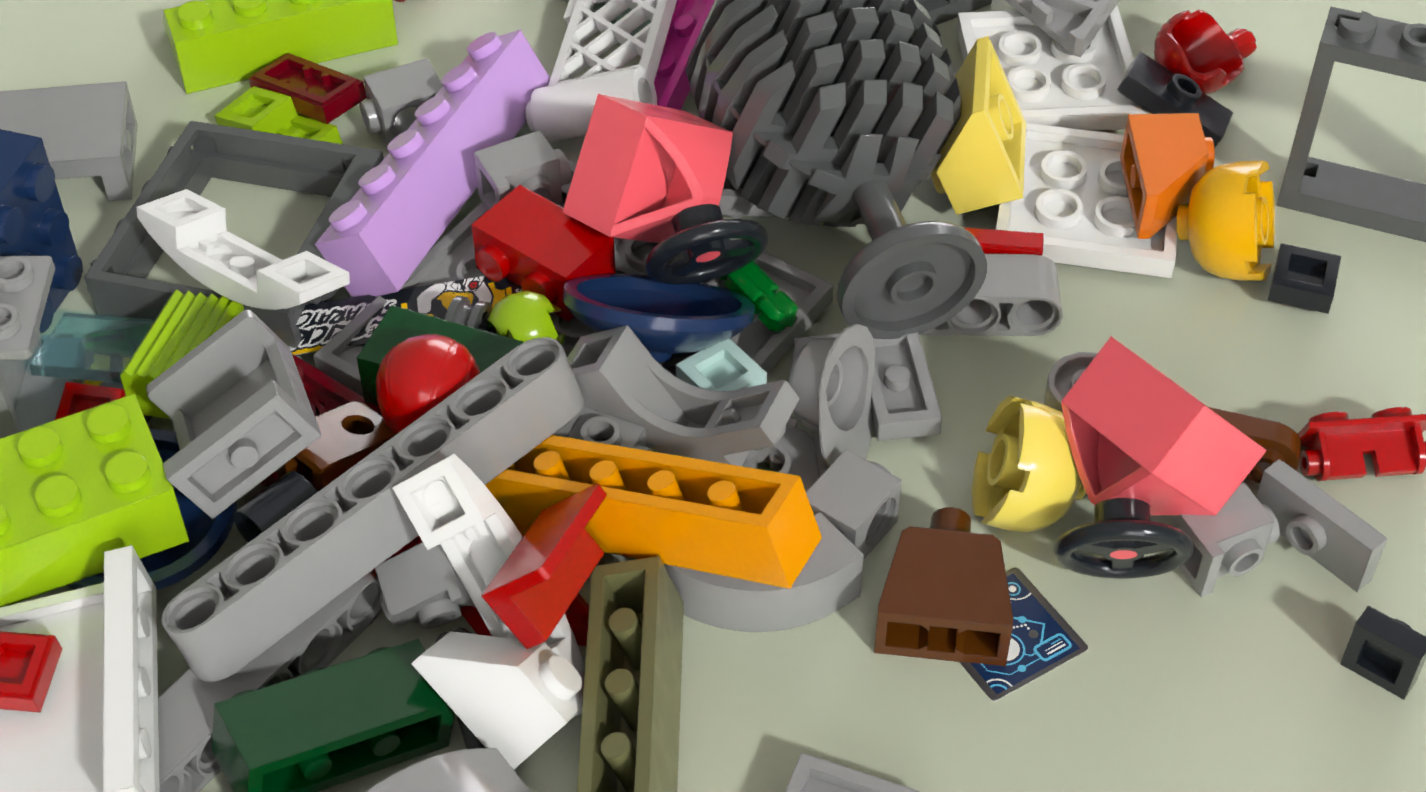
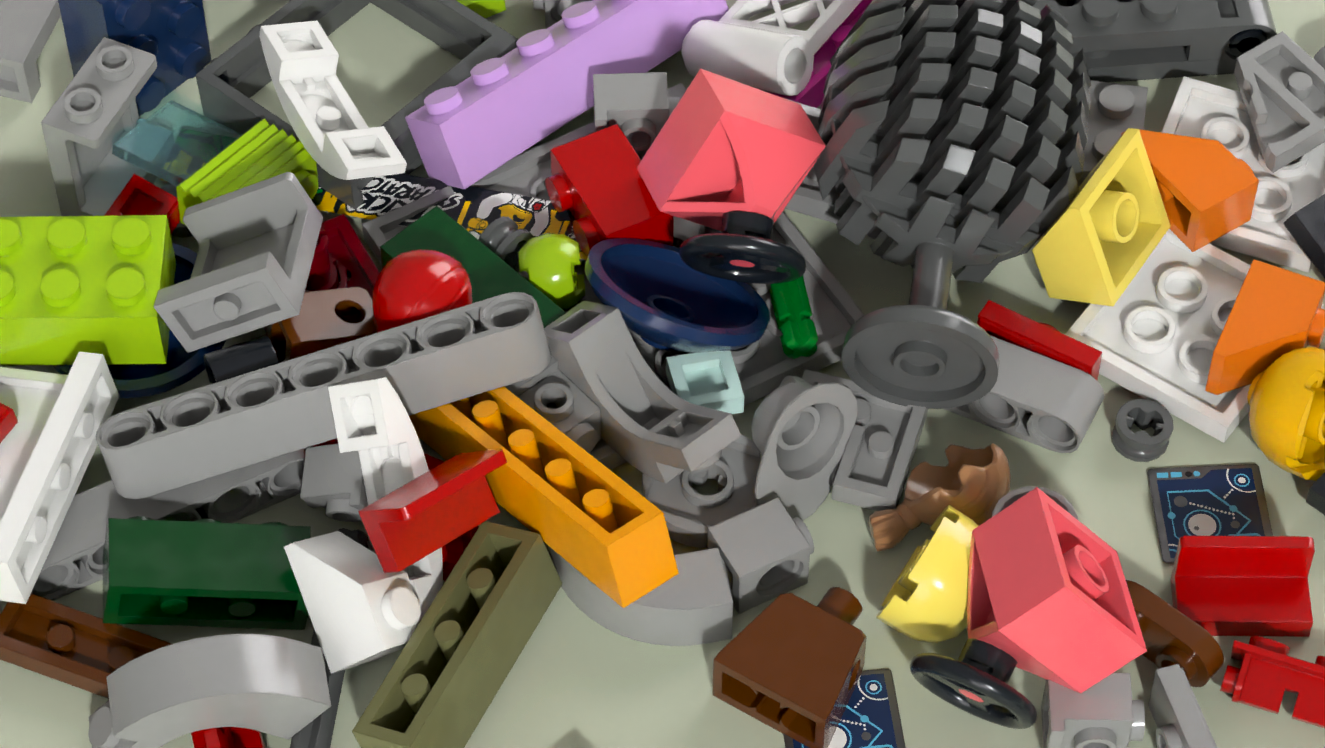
camera: 25 degrees right, 5 degrees up
(975, 395) = (968, 483): none -> medium nougat hair
(1044, 80) = (1200, 186): none -> orange slope
(1100, 305) = (1140, 445): none -> dark grey bush
(1195, 338) = (1207, 503): none -> sticker
(1274, 375) = (1245, 584): none -> red panel

